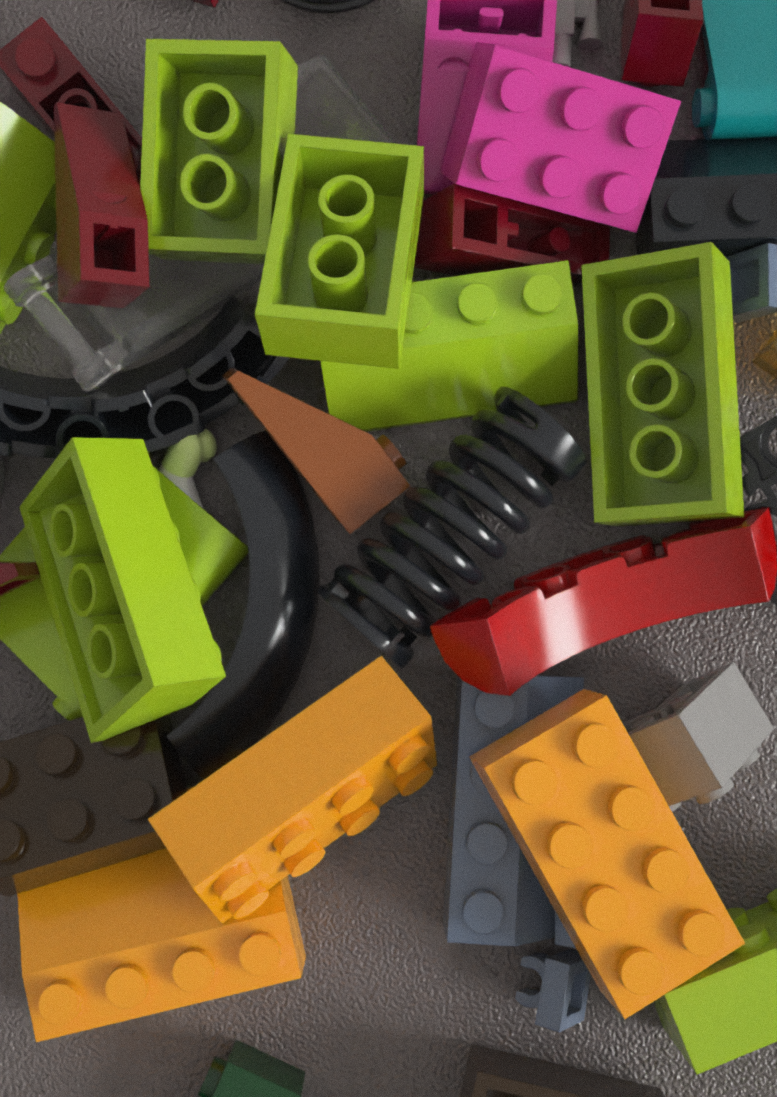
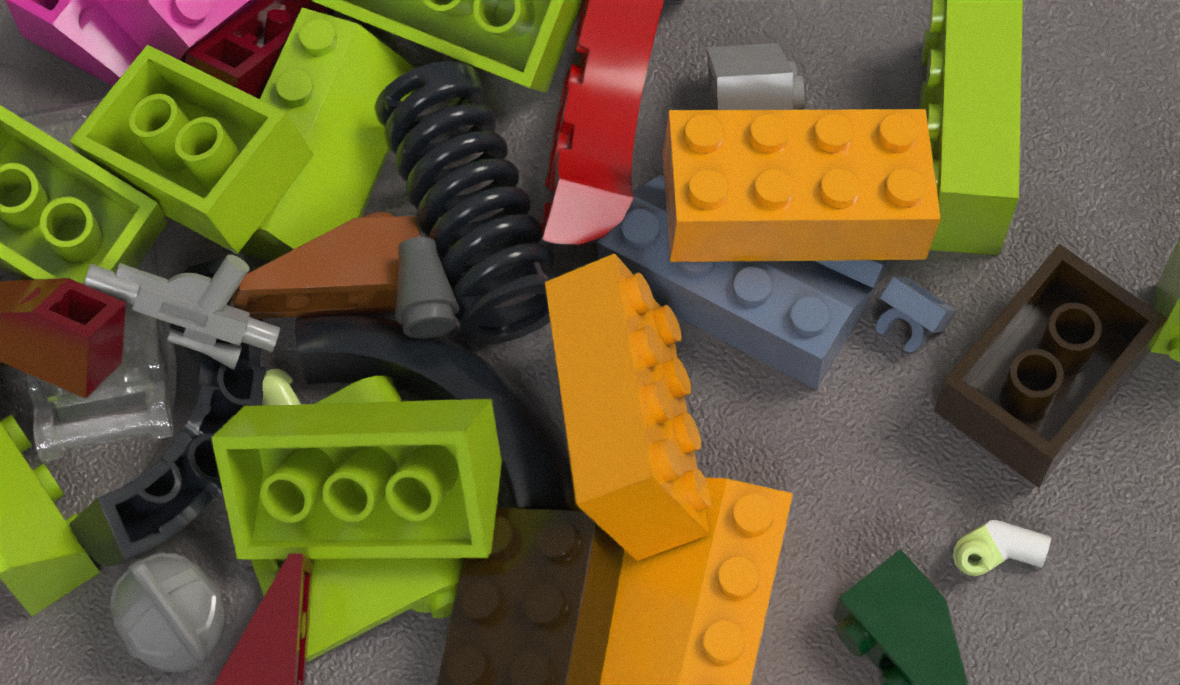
camera: 55 degrees left, 20 degrees down
(193, 340) = (192, 303): none -> light grey piece
(328, 540) = (423, 292): none -> dark grey cone

